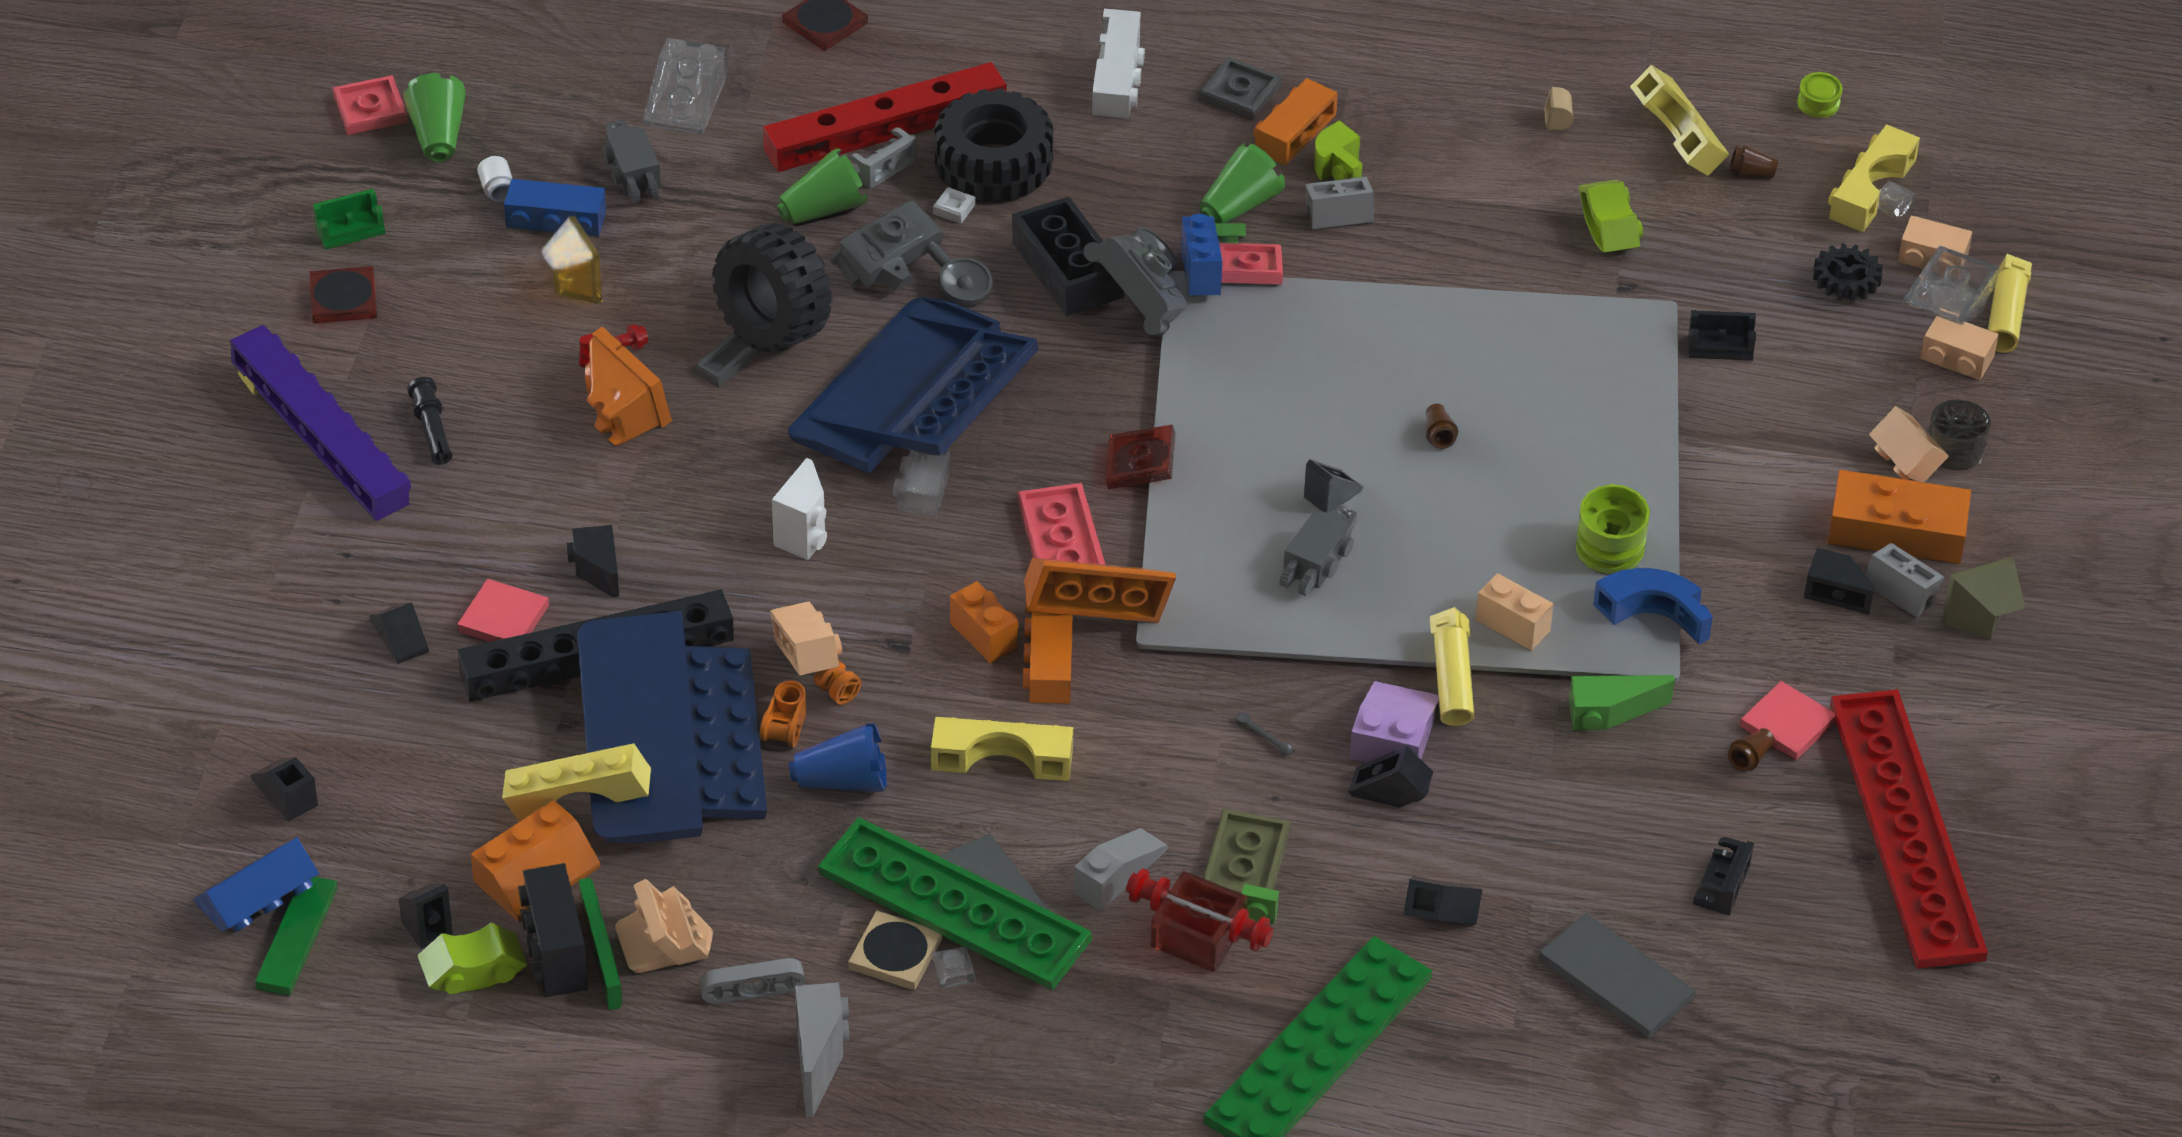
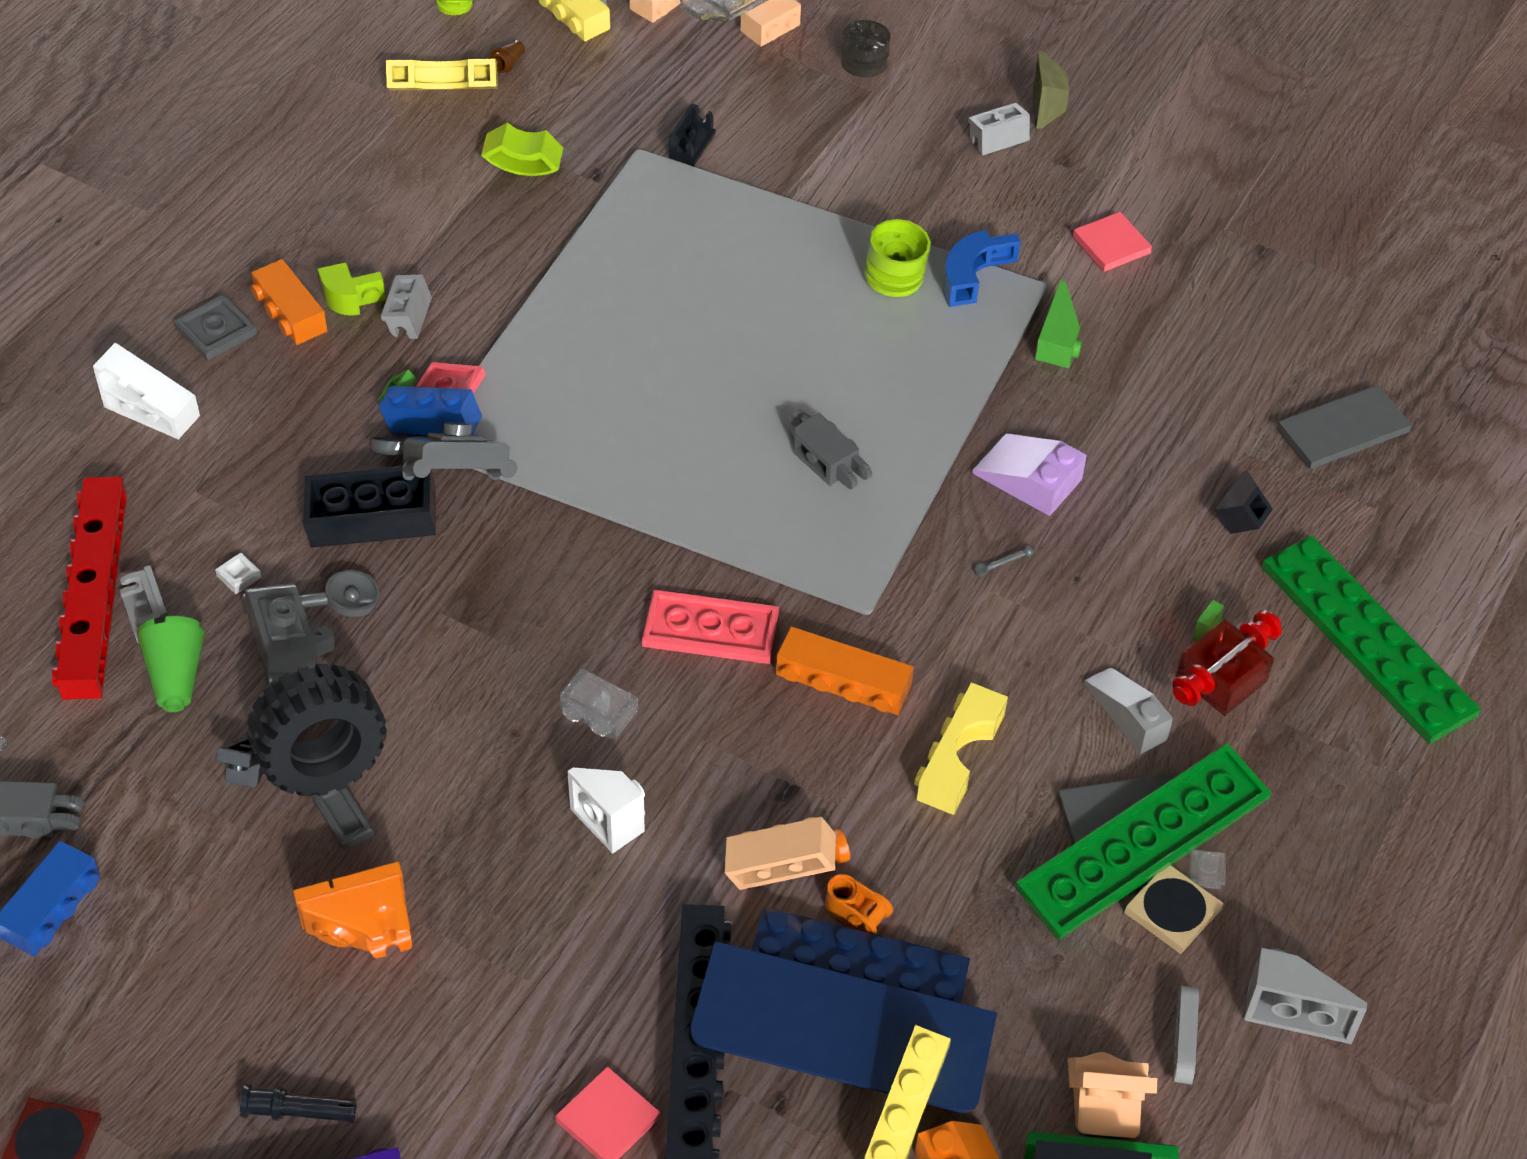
camera: 70 degrees left, 5 degrees up
(574, 263) = (154, 896): clear yellow slope -> none
(595, 557) = (576, 1005): black slope -> none
(635, 336) = (275, 883): red hinge -> none
(843, 762) = (944, 871): blue cone -> none
(913, 385) = (476, 670): dark blue slope -> none
(984, 621) = (802, 712): orange brick -> none
(994, 171) = (188, 483): black tyre -> none
(1097, 590) = (821, 605): orange slope -> none
(1140, 456) = (645, 536): clear red tile -> none
(1242, 185) = (353, 358): bright green cone -> none
(1247, 850) = (1142, 618): olive tile -> none
(1328, 486) = (754, 420): black slope -> none
(1392, 779) = (1096, 492): black slope -> none
(1440, 428) = (716, 327): reddish brown cone -> none
(1453, 666) = (994, 408): light yellow piece -> none
(1514, 611) = (953, 349): light nougat brick -> none
(1558, 109) = (378, 141): tan brick -> none
(1724, 876) = (1266, 328): black hinge -> none
(1748, 751) = (1142, 272): reddish brown cone -> none
(1838, 582) = (985, 163): black slope -> none
(1847, 272) = (659, 46): black gear -> none
(1908, 446) = (867, 76): light nougat brick -> none
(1908, 829) = (1249, 213): red plate -> none
(1913, 515) = (934, 107): orange brick -> none

